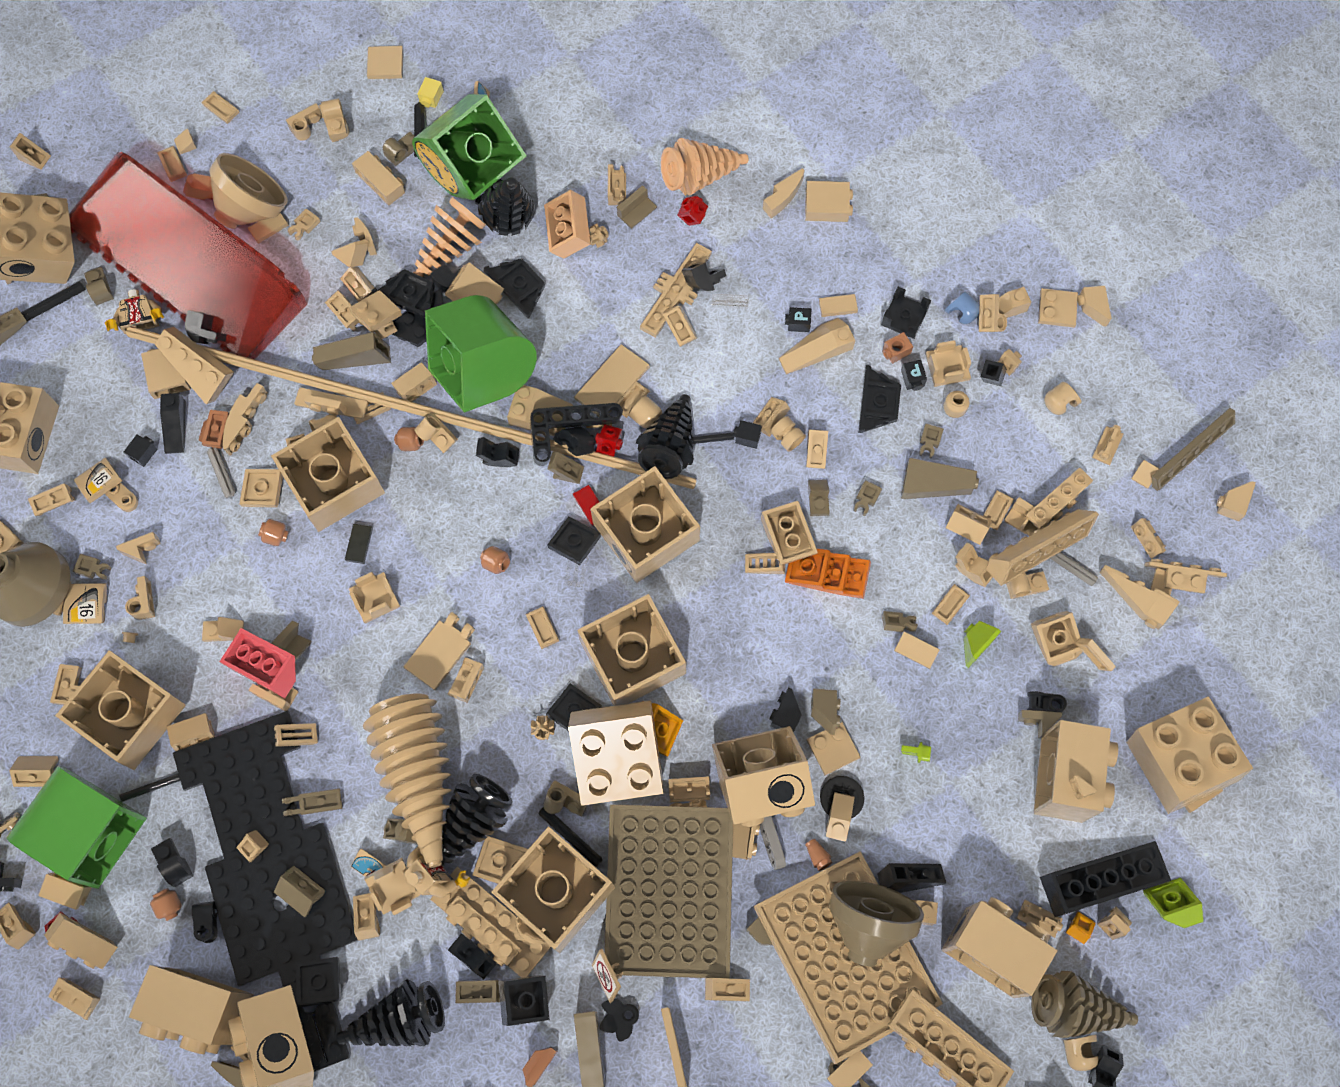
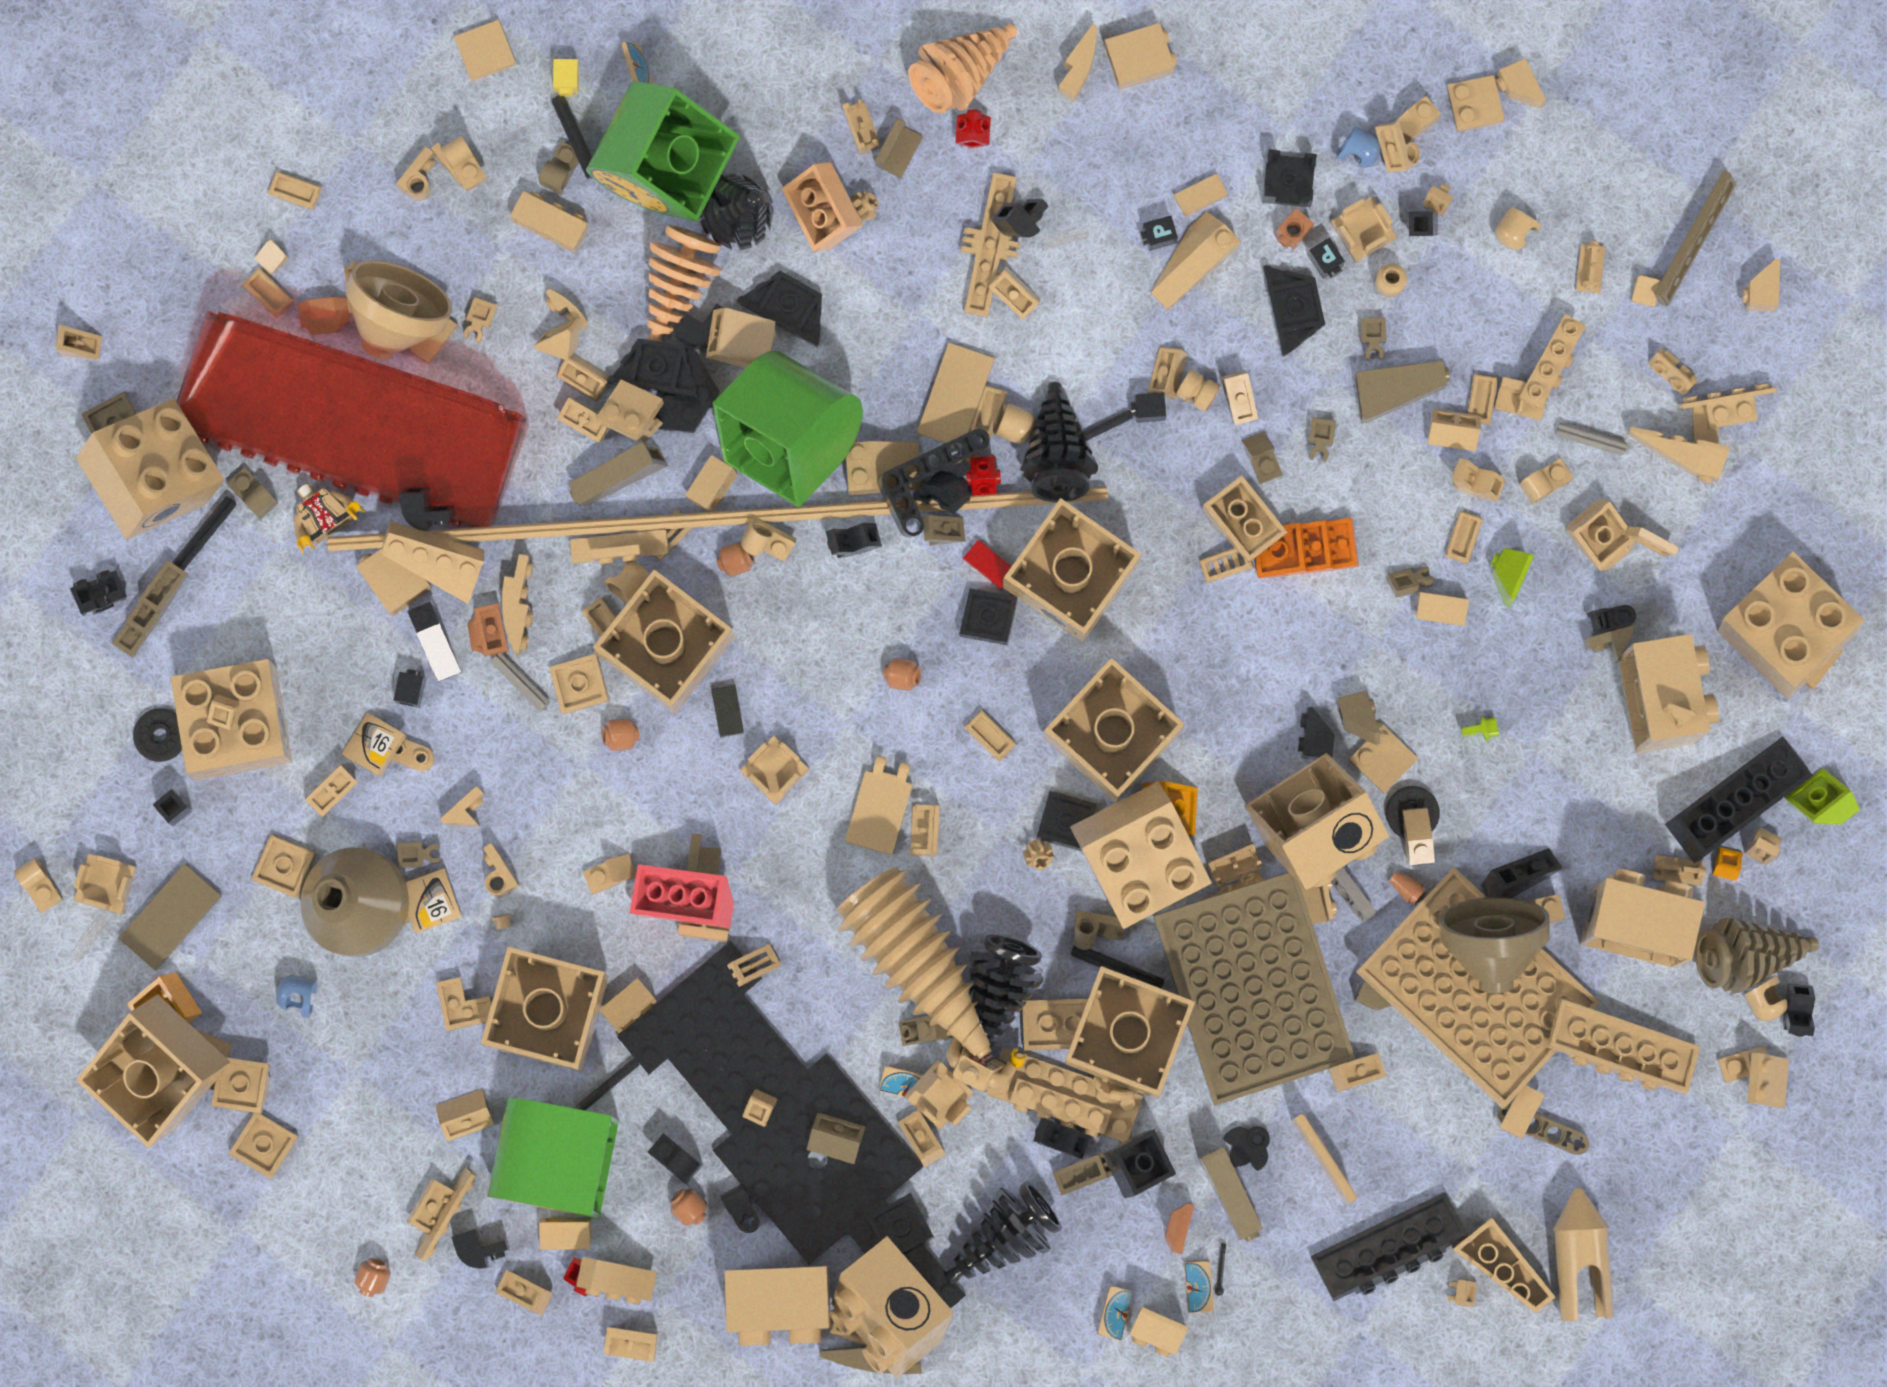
camera: 20 degrees left, 10 degrees up
(315, 802) = (810, 1033): dark tan hinge -> none
(606, 975) = (1219, 1105): piece -> none
(1041, 545) = (1548, 430): tan slope -> none

